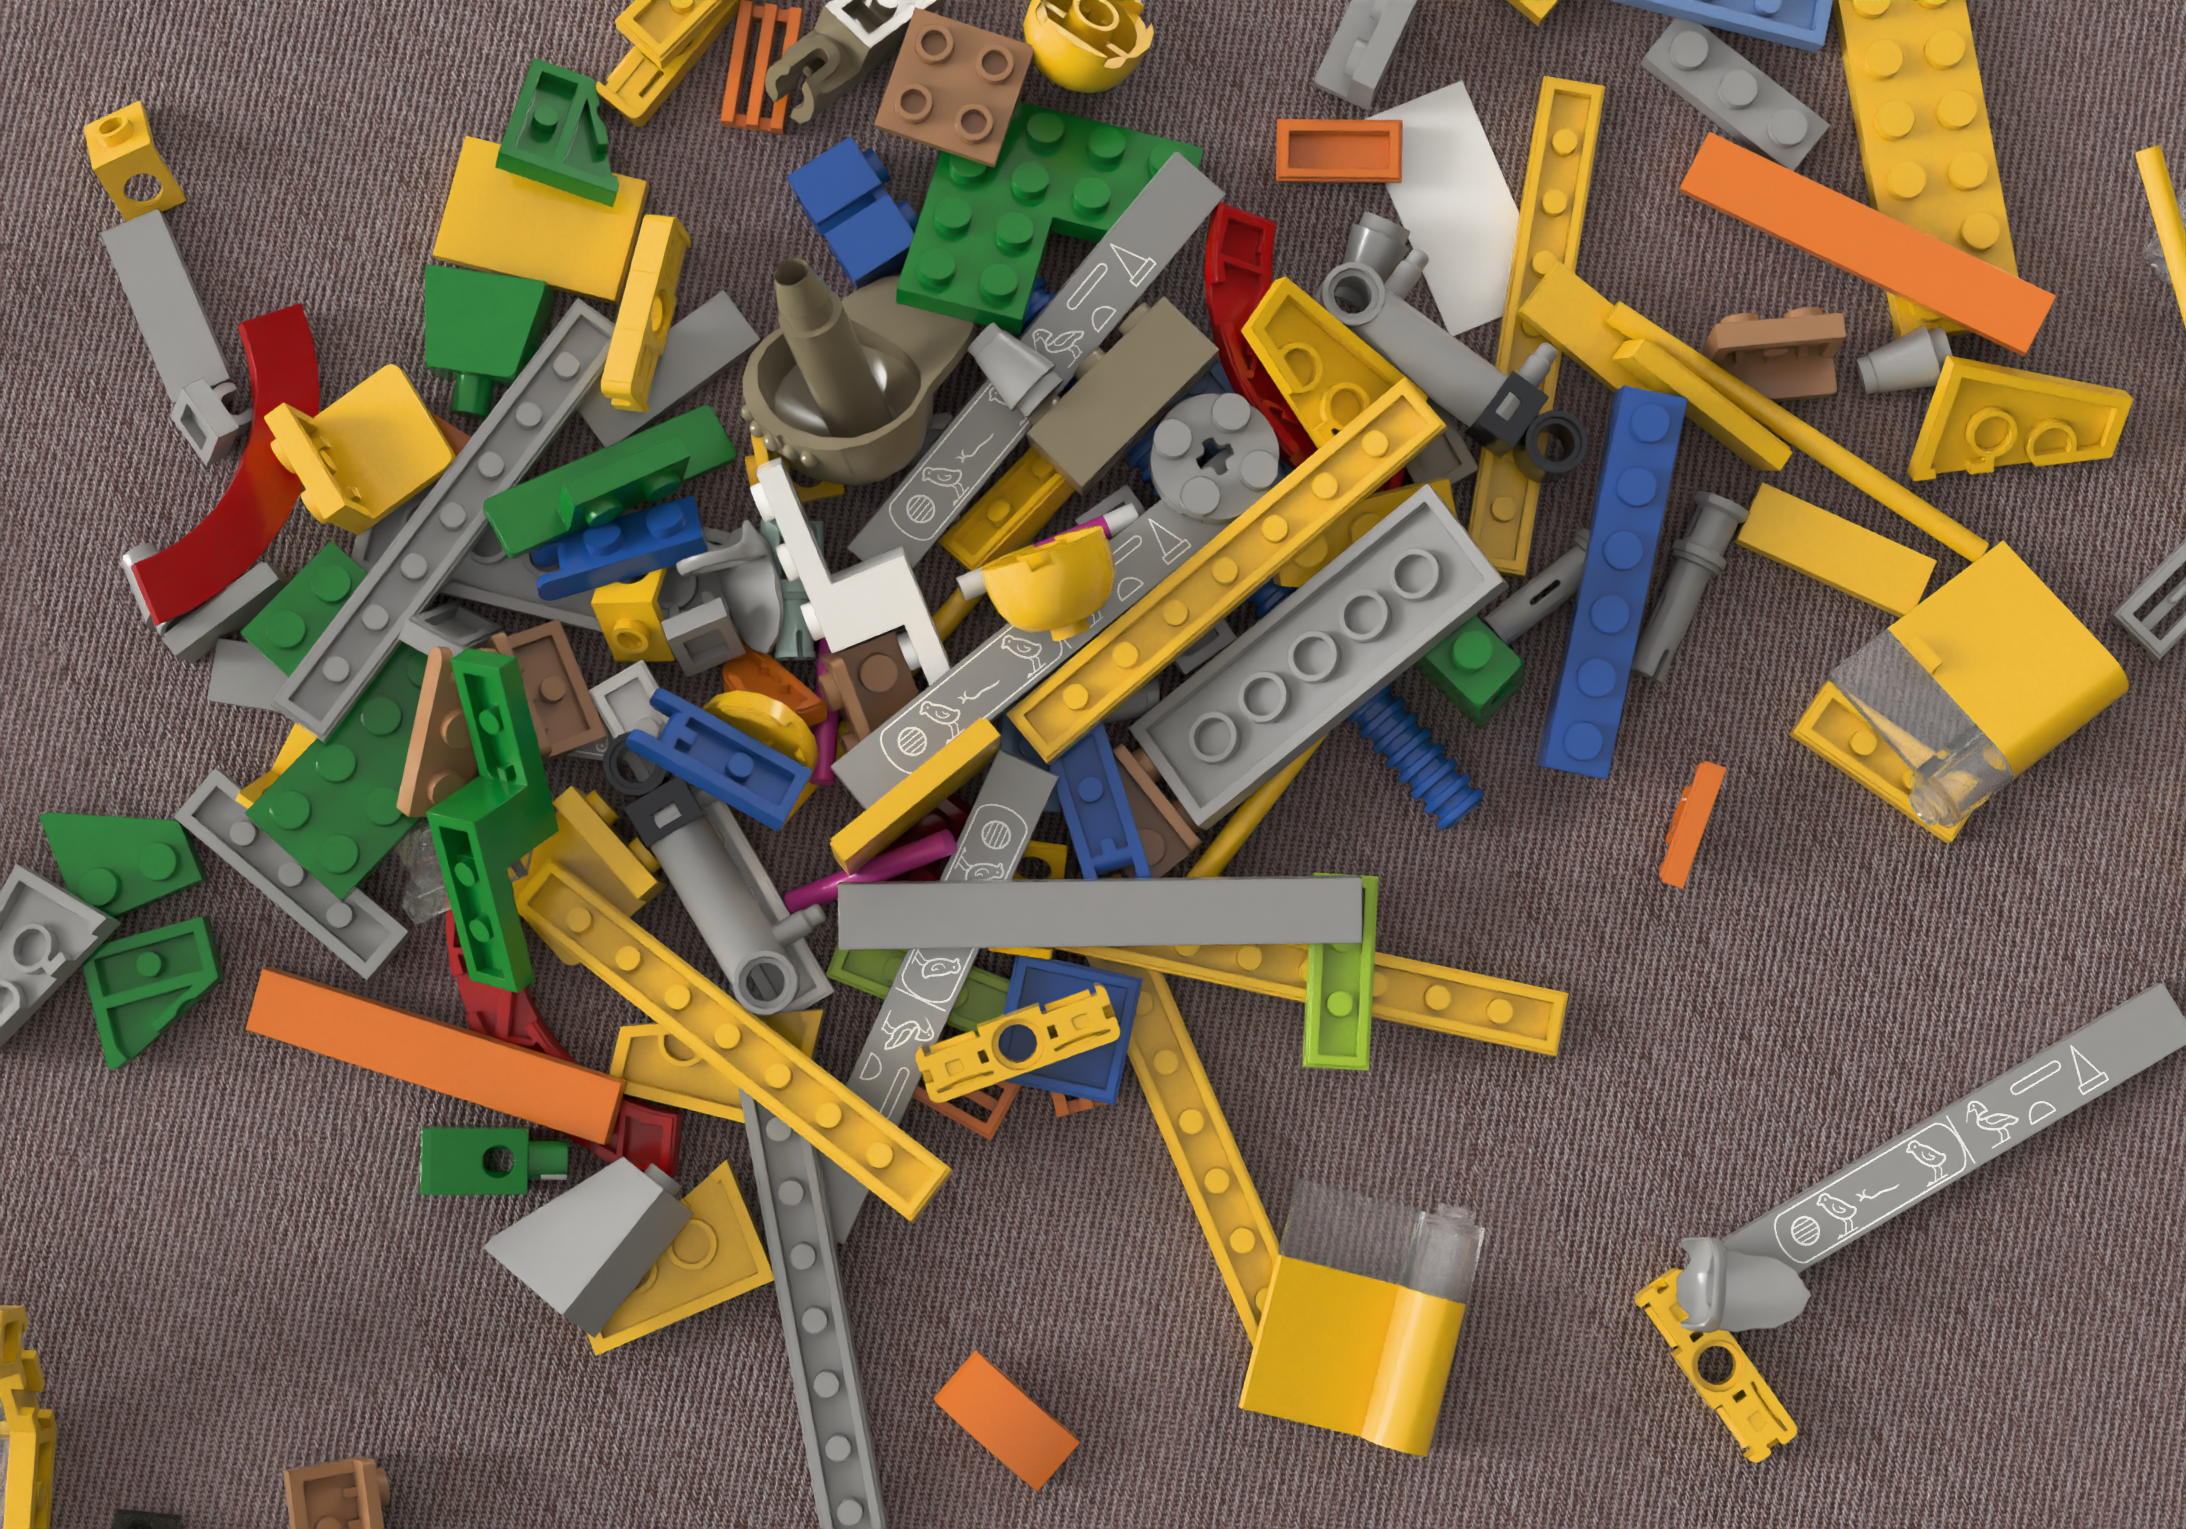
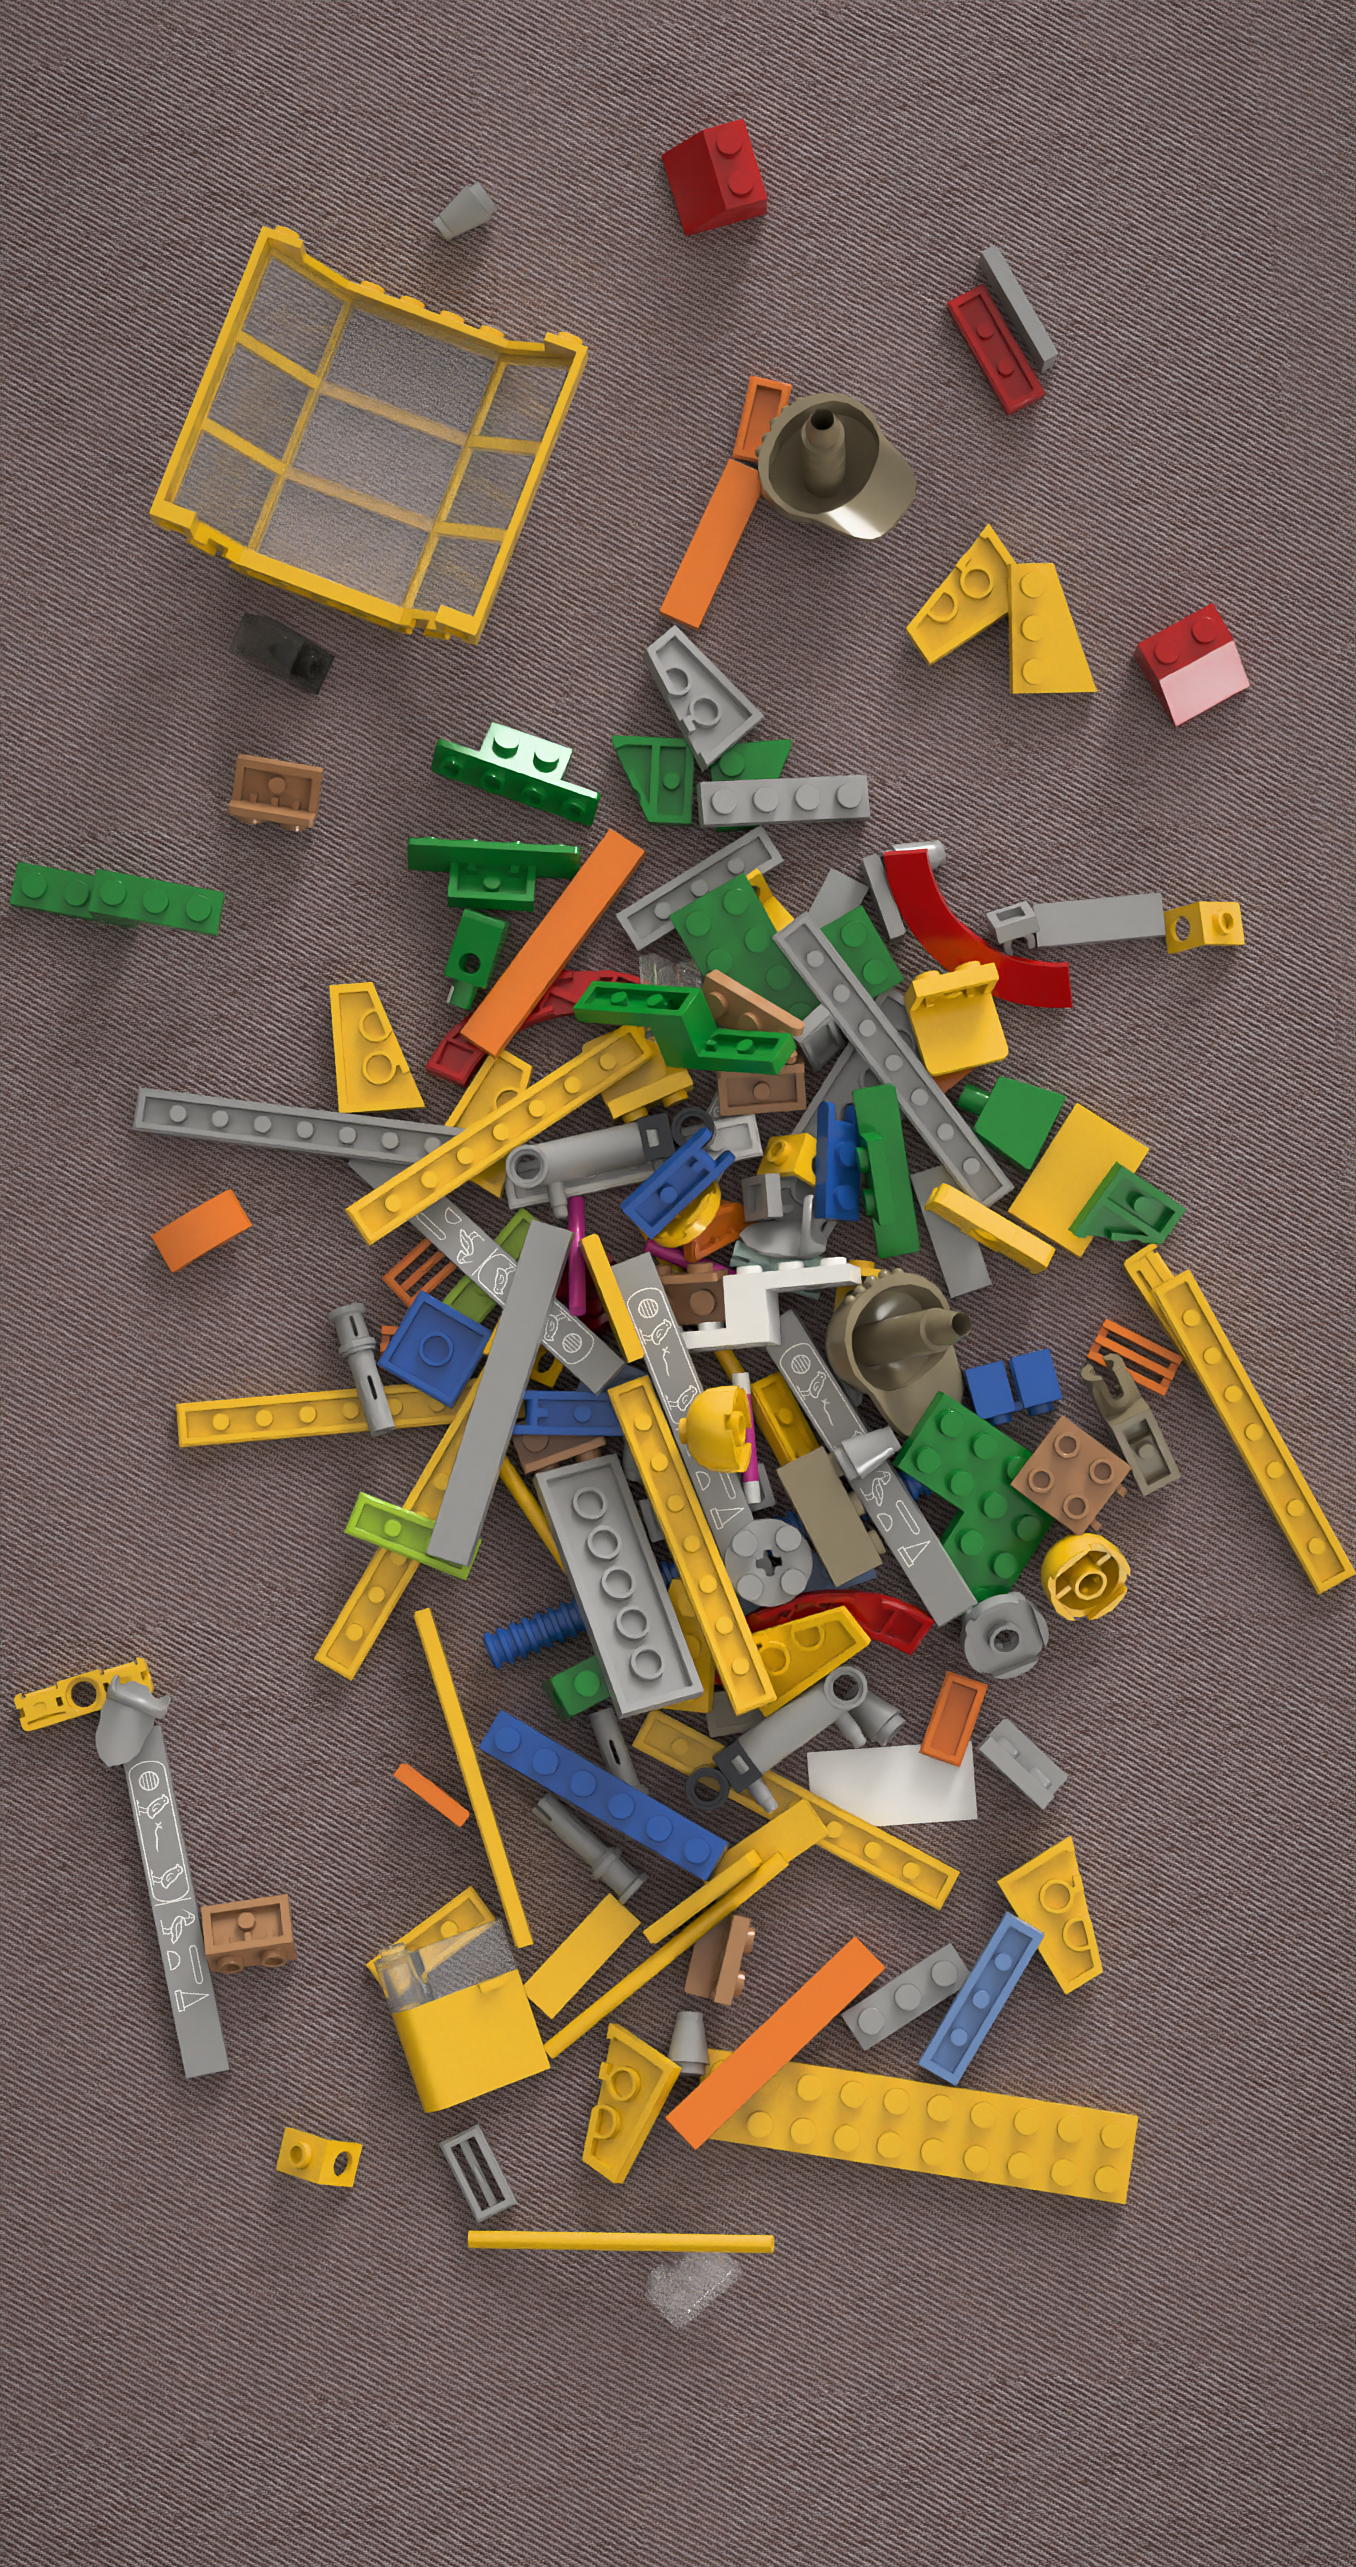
camera: 100 degrees right, 0 degrees up
(130, 797) = (783, 801): none -> light grey plate
(202, 1186) = (520, 770): none -> green bracket
(359, 1177) = (492, 872): none -> green bracket
(594, 1241) = (400, 1007): light grey slope -> none
(976, 1061) = (434, 1284): yellow piece -> none
(1103, 1138) = (358, 1351): none -> light grey pin
(1176, 125) = (992, 1616): none -> light grey plate
(1363, 1316) = (191, 1478): yellow door -> none
(1646, 777) = (473, 1778): none -> yellow tile
(1968, 1018) = (248, 1934): none -> medium nougat bracket

